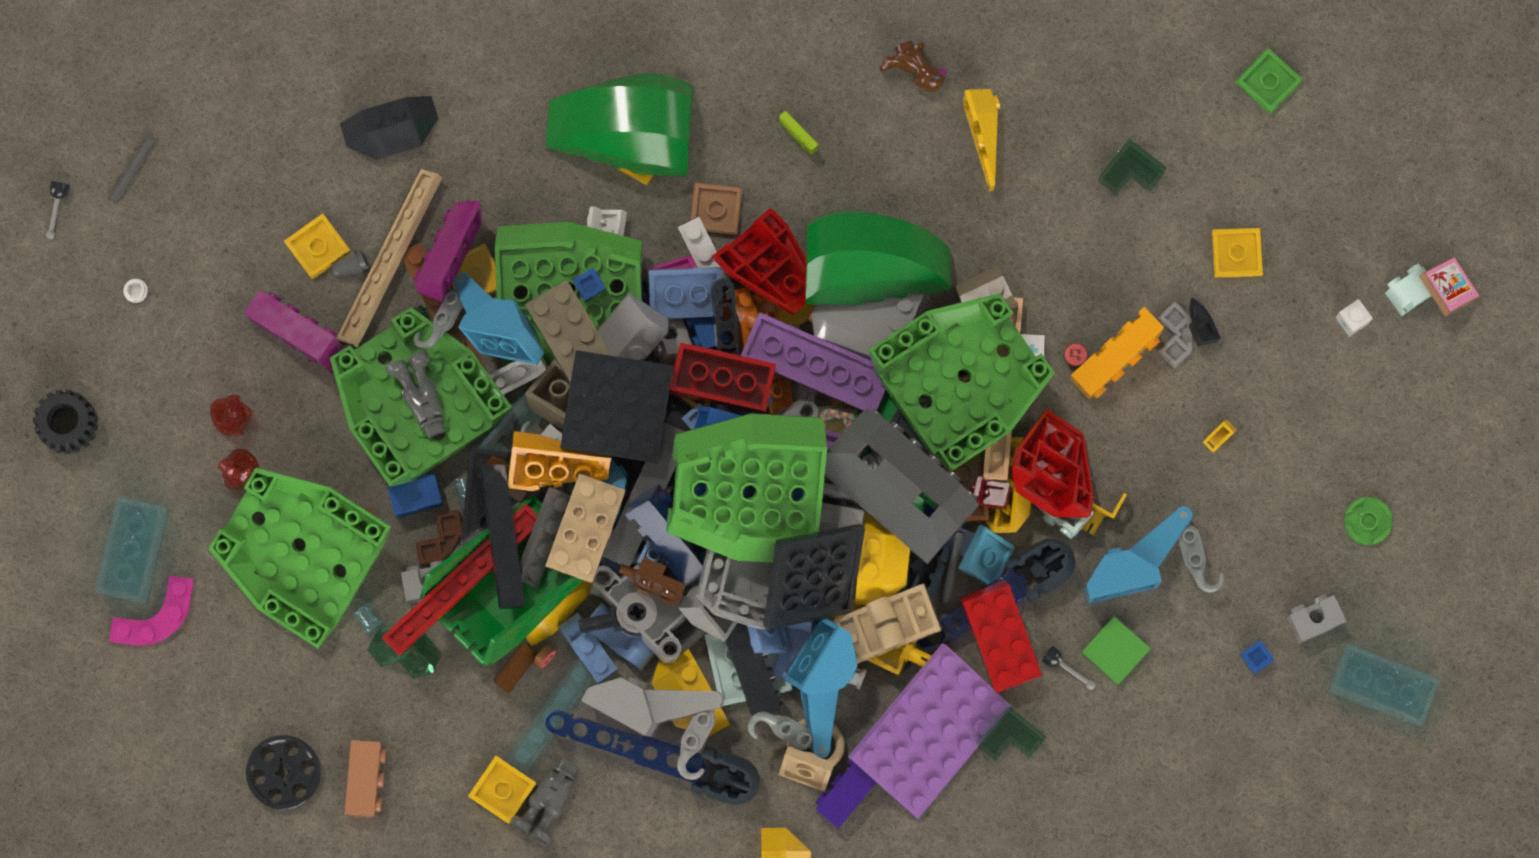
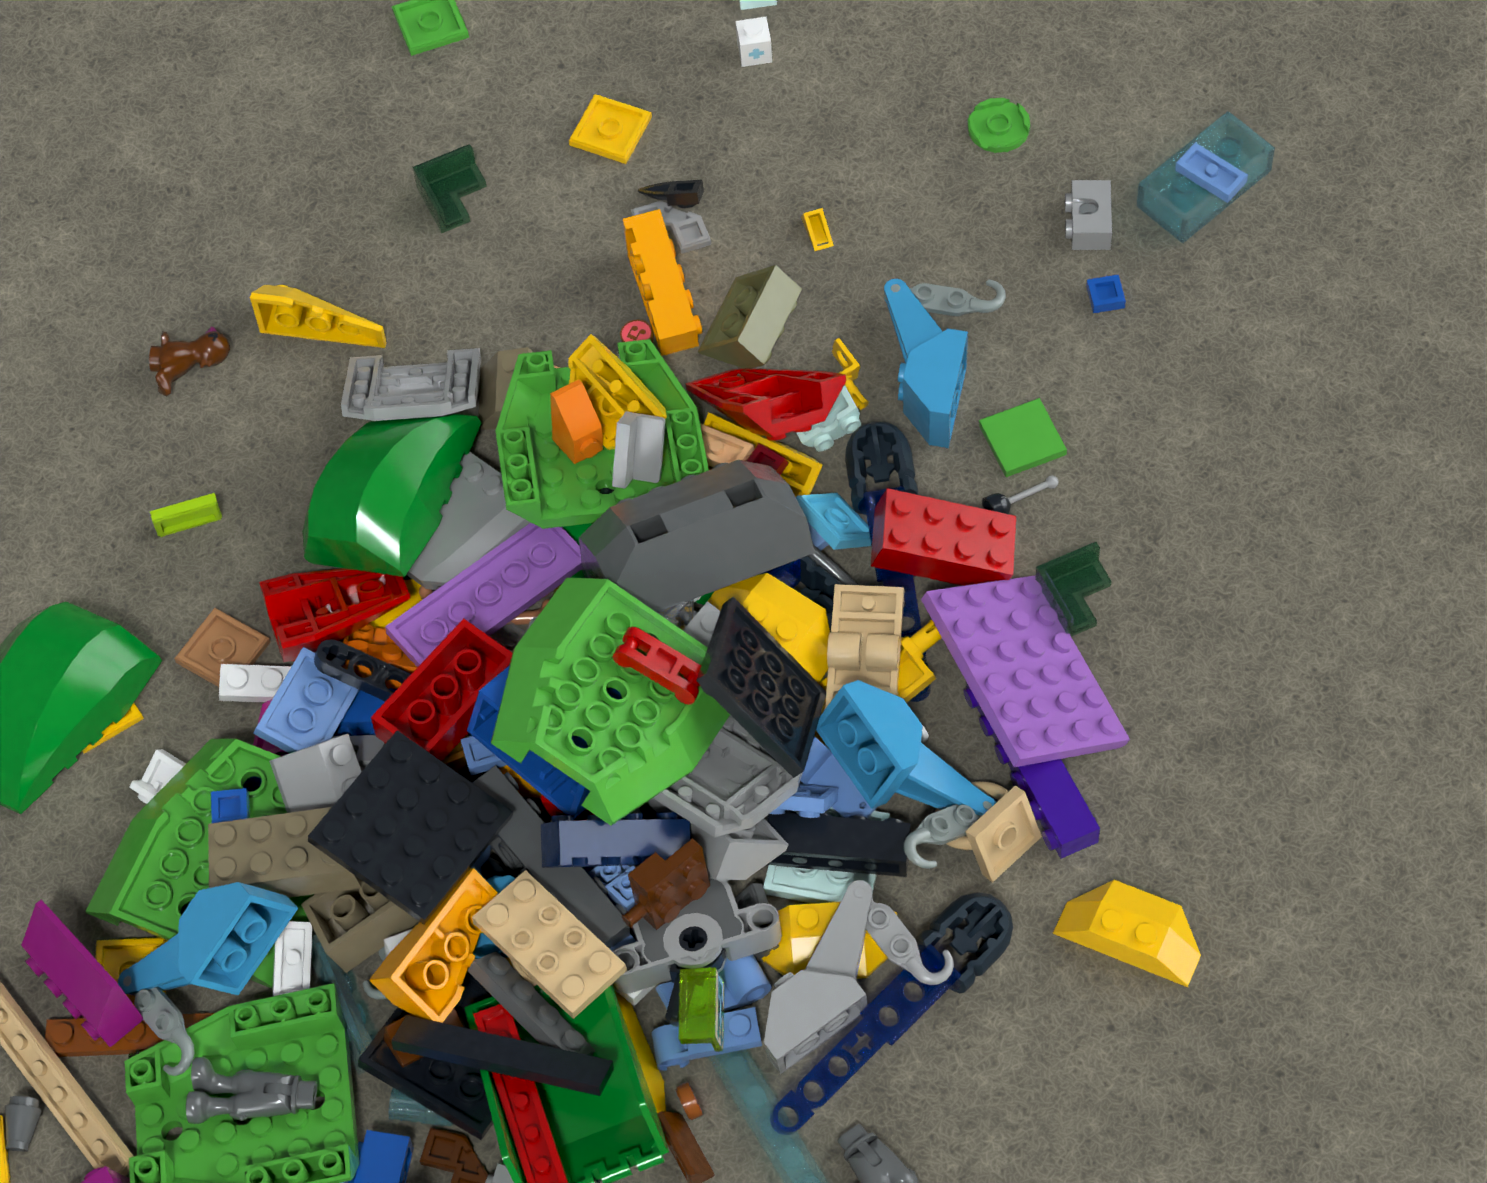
camera: 60 degrees left, 20 degrees down
(593, 639) = (701, 1007): none -> clear neon green panel
(782, 509) = (659, 663): none -> red plate
(950, 232) = (411, 390): none -> light grey wedge
(951, 412) = (638, 449): none -> light grey panel
(954, 362) = (575, 422): none -> orange slope
(990, 375) = (610, 387): none -> yellow wedge
(1122, 426) = (751, 318): none -> olive slope
(1375, 690) = (1211, 172): none -> medium blue plate

